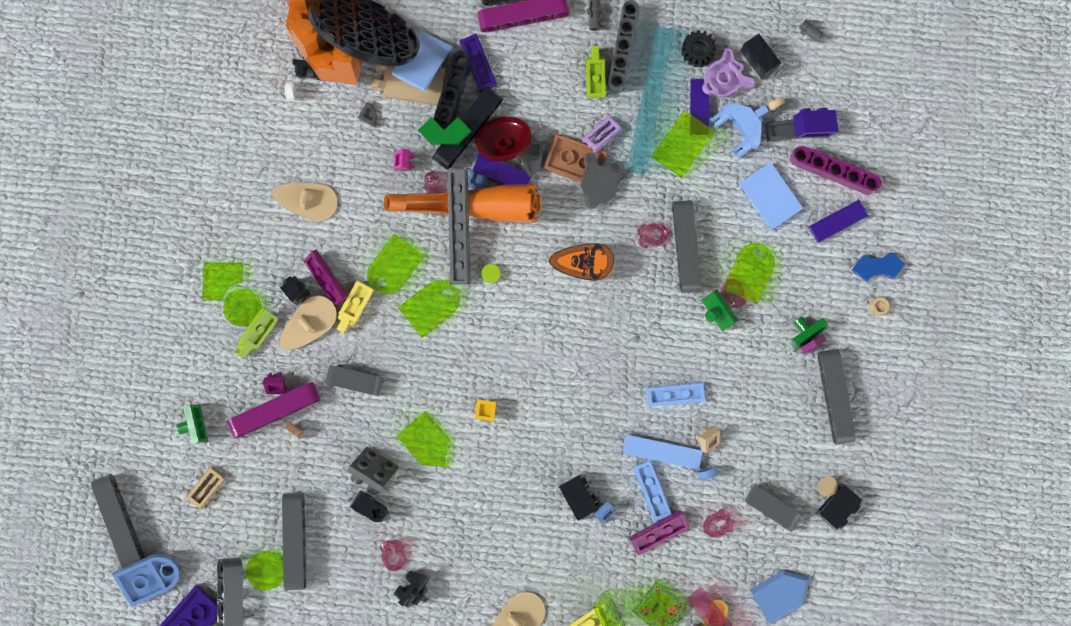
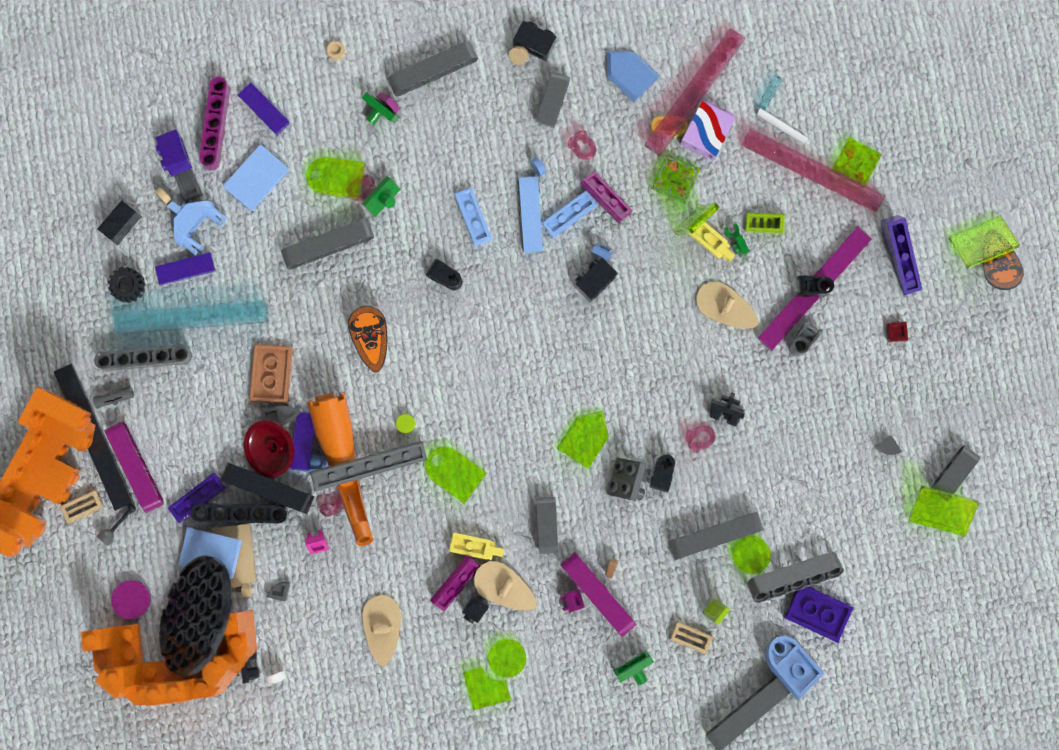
camera: 105 degrees left, 0 degrees up
(220, 519) = (716, 611): none -> lime slope
(256, 332) = (528, 635): lime hinge -> none
(394, 264) = (422, 520): clear neon green tile -> none
(452, 135) = (279, 498): green tile -> none
(485, 410) = (539, 389): yellow tile -> none
(591, 144) = (251, 362): lavender tile -> none
(595, 75) = (179, 377): lime hinge -> none
(600, 181) = (285, 343): dark grey tile -> none
(626, 348) = (442, 273): none -> black piece
(645, 241) = (333, 284): clear pink piece -> none
(682, 144) = (227, 274): clear neon green tile -> none
(709, 439) = (506, 173): tan tile -> none
(725, 76) = (148, 252): lavender tile -> none
(810, 30) = (79, 182): dark grey pin -> none
(886, 266) = (300, 69): blue tile -> none

